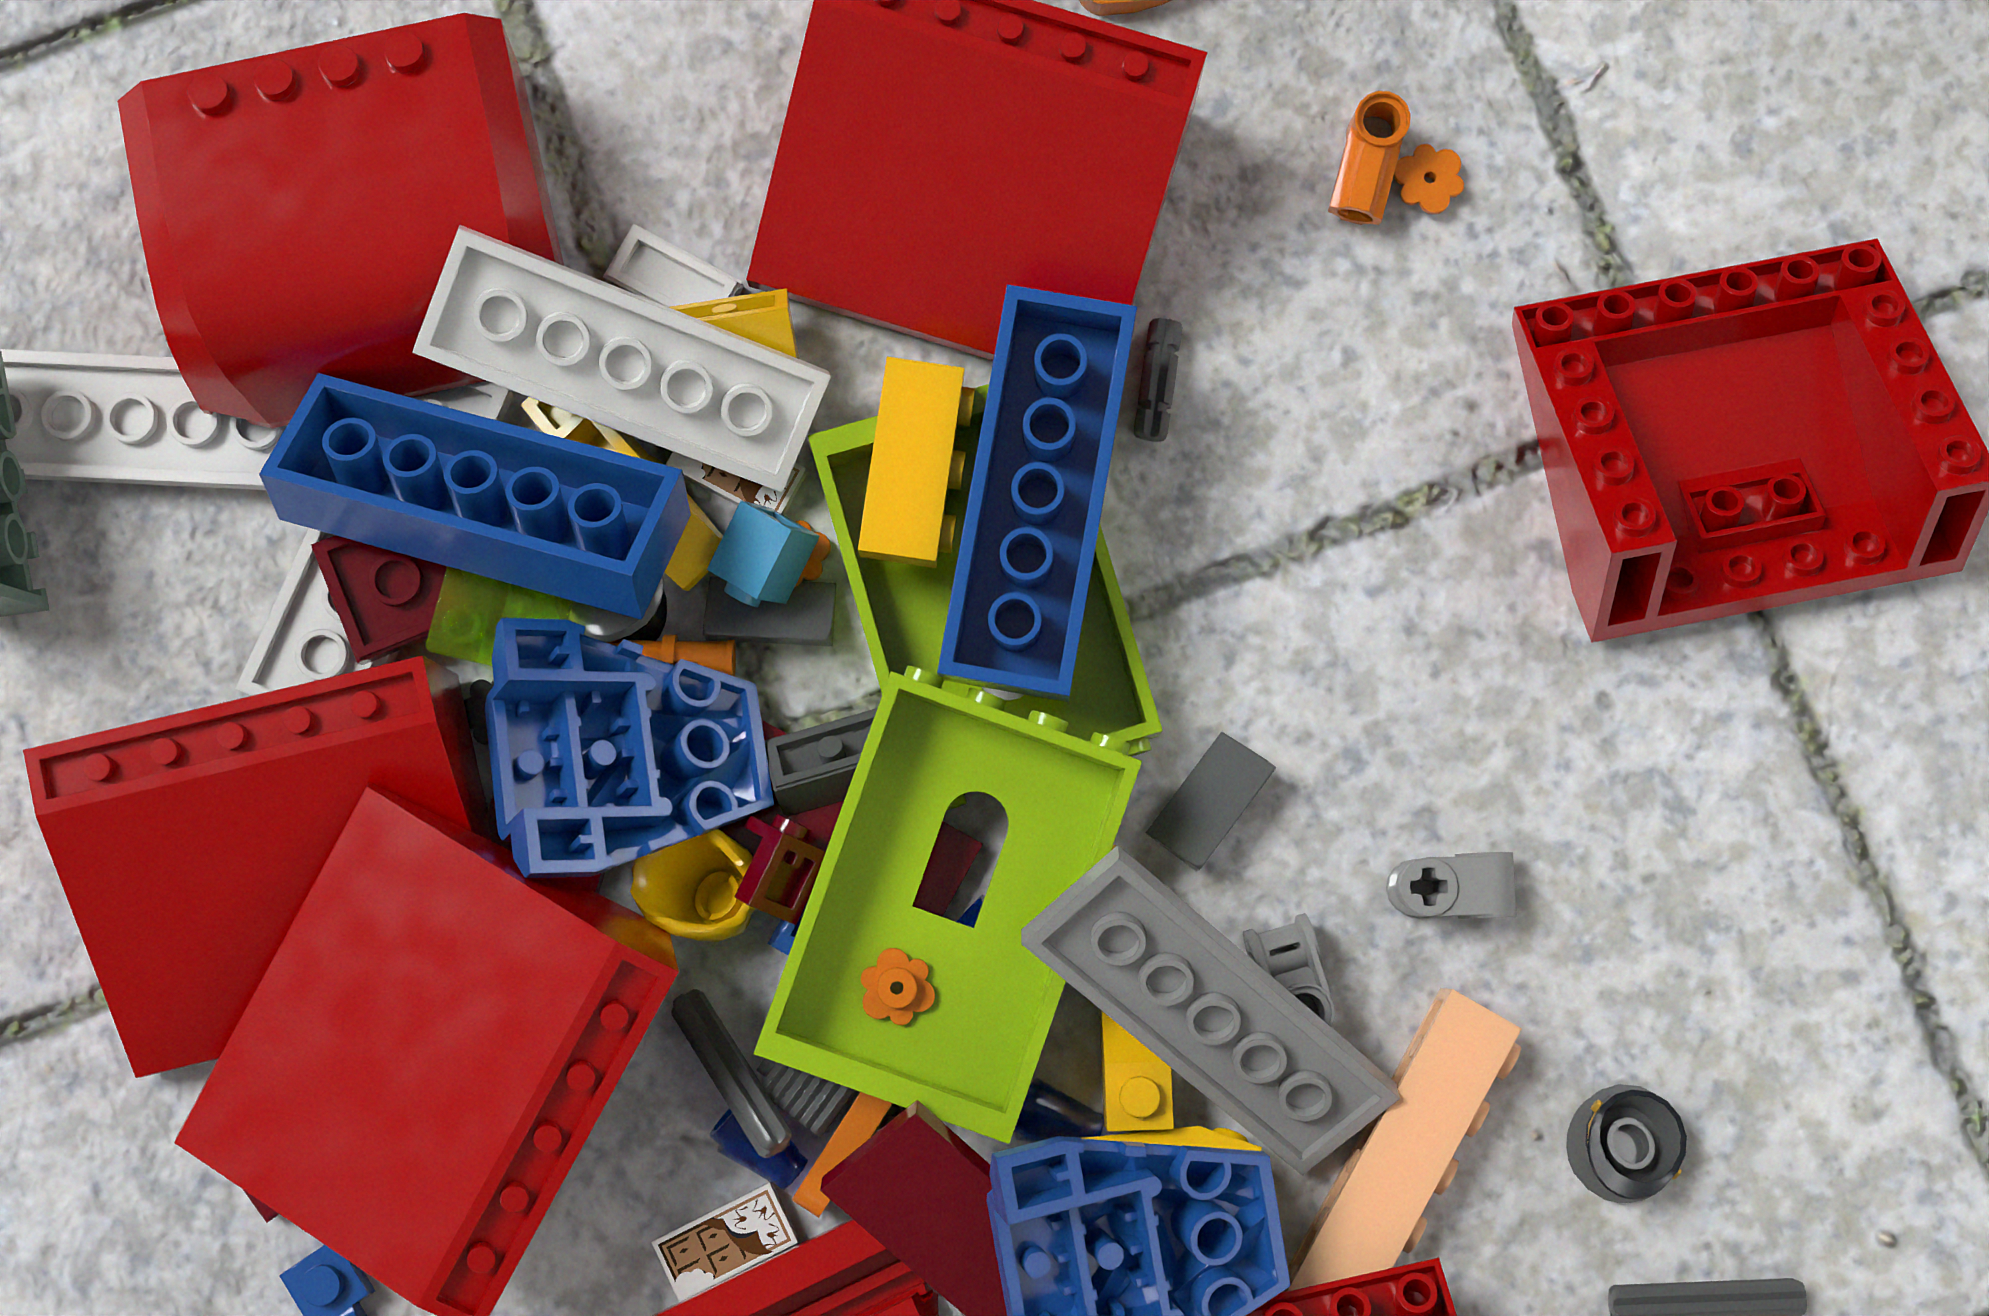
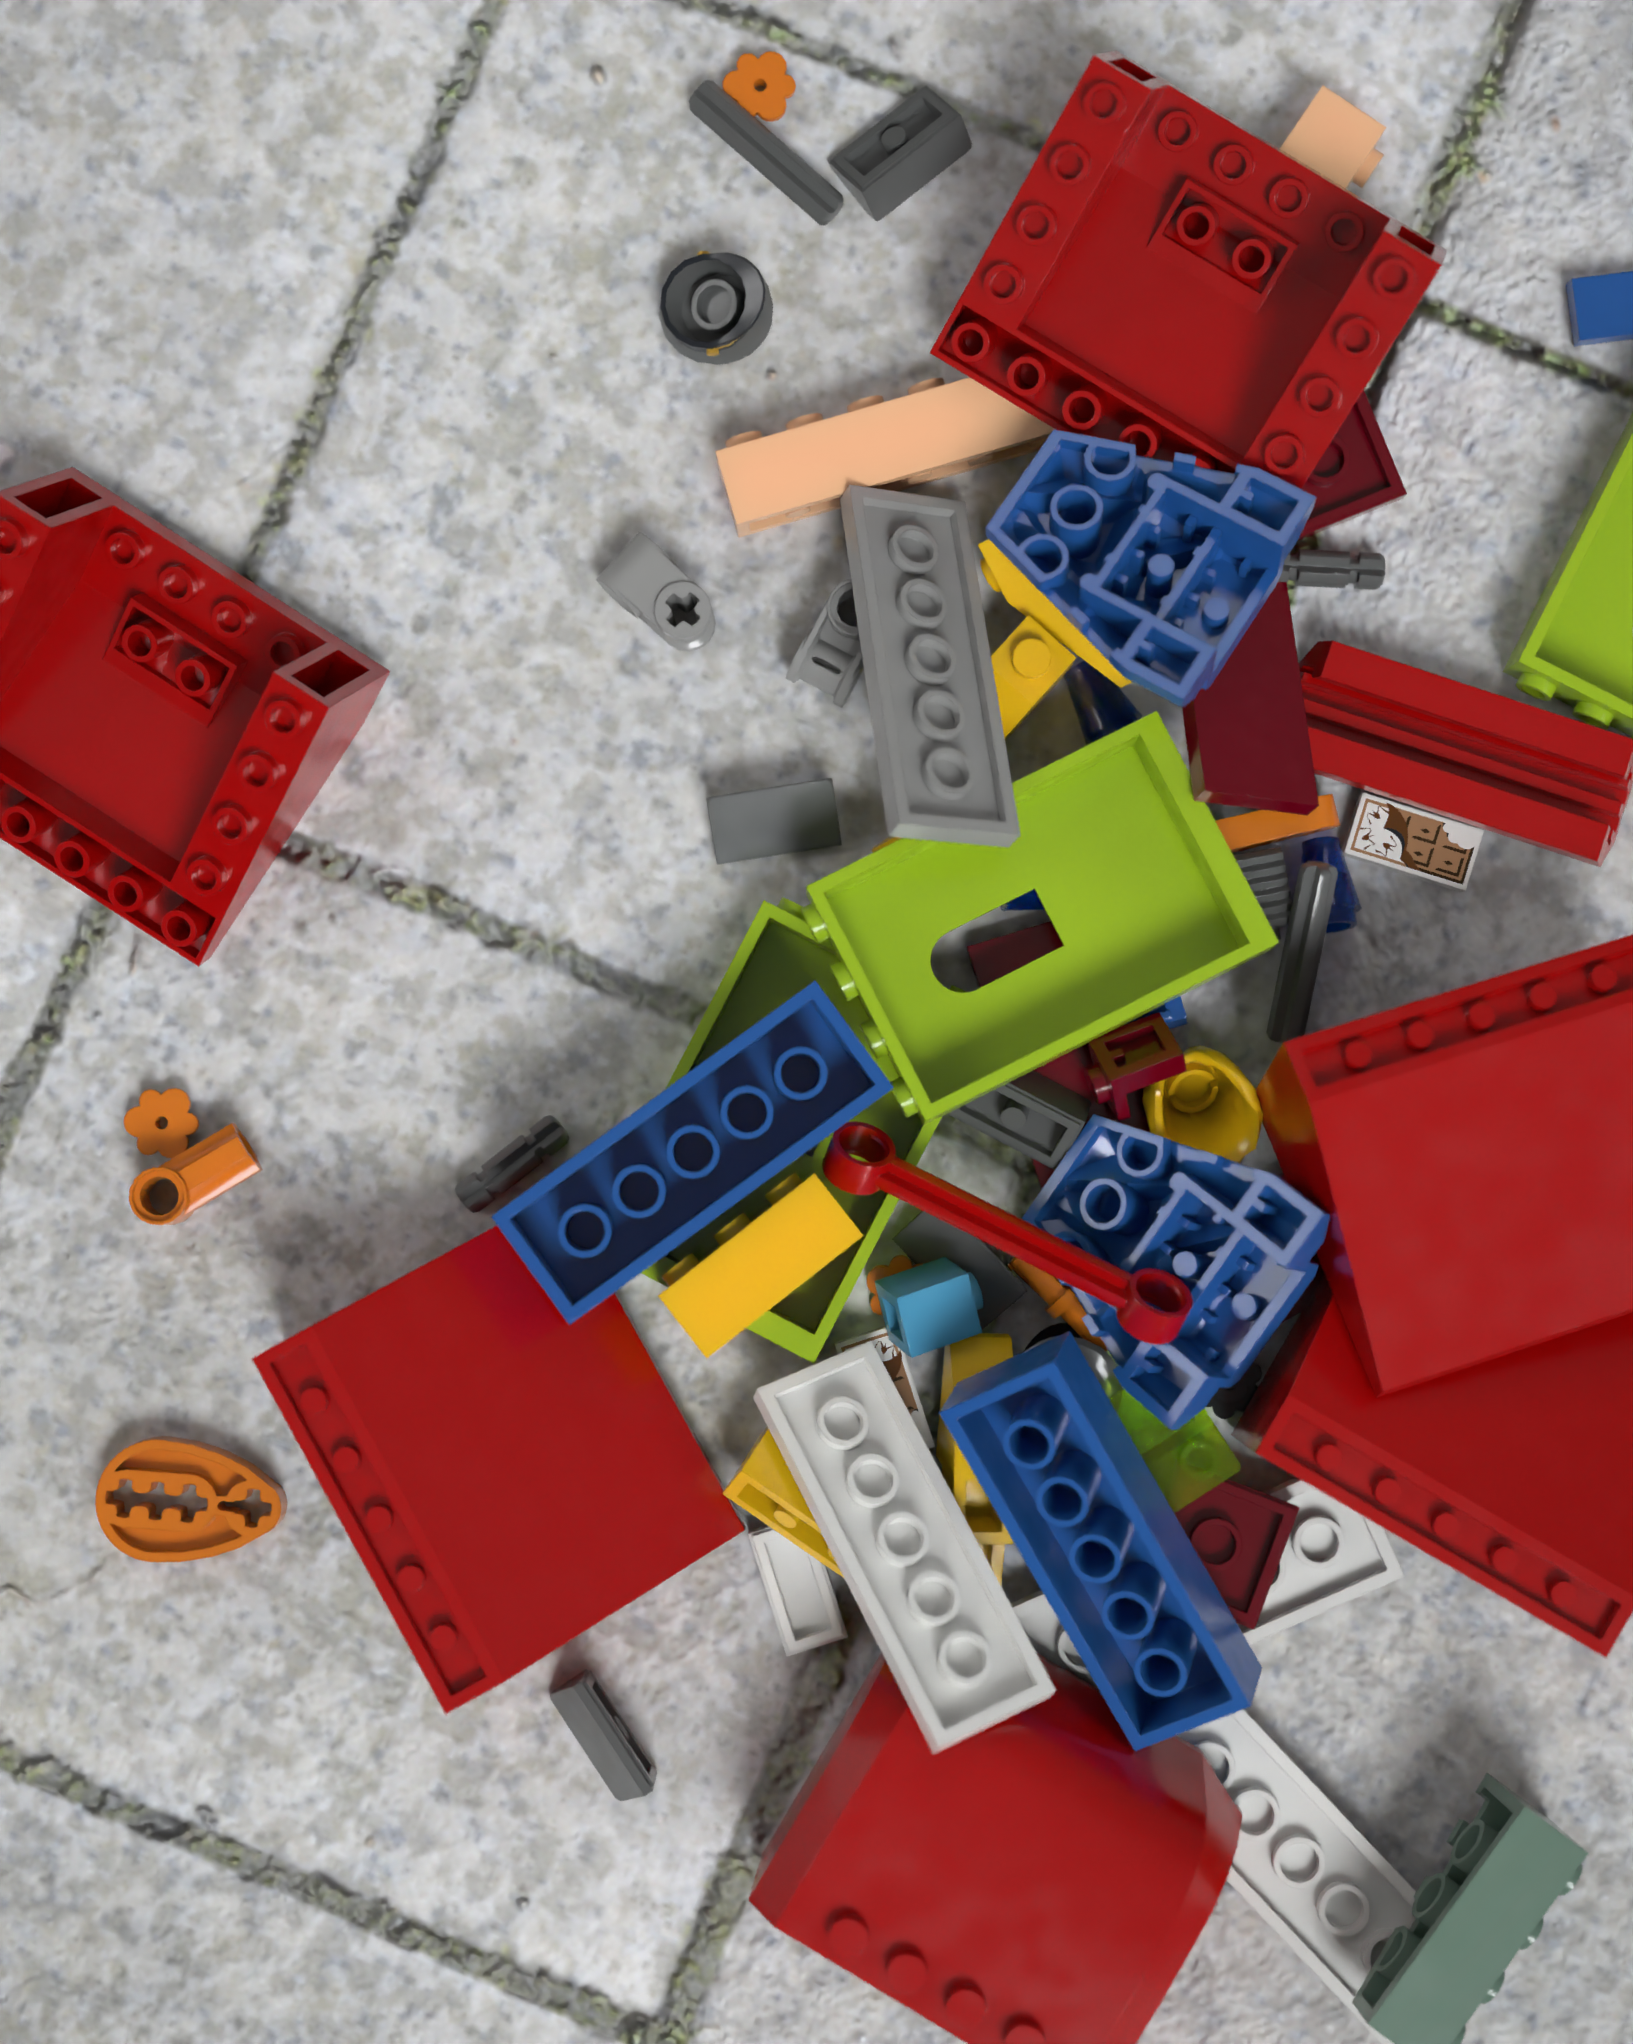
camera: 135 degrees left, 5 degrees up
(709, 56) = (604, 1737): none -> dark grey slope
(753, 652) = (1008, 1233): none -> red piece
(892, 967) = (1117, 912): orange plant -> none

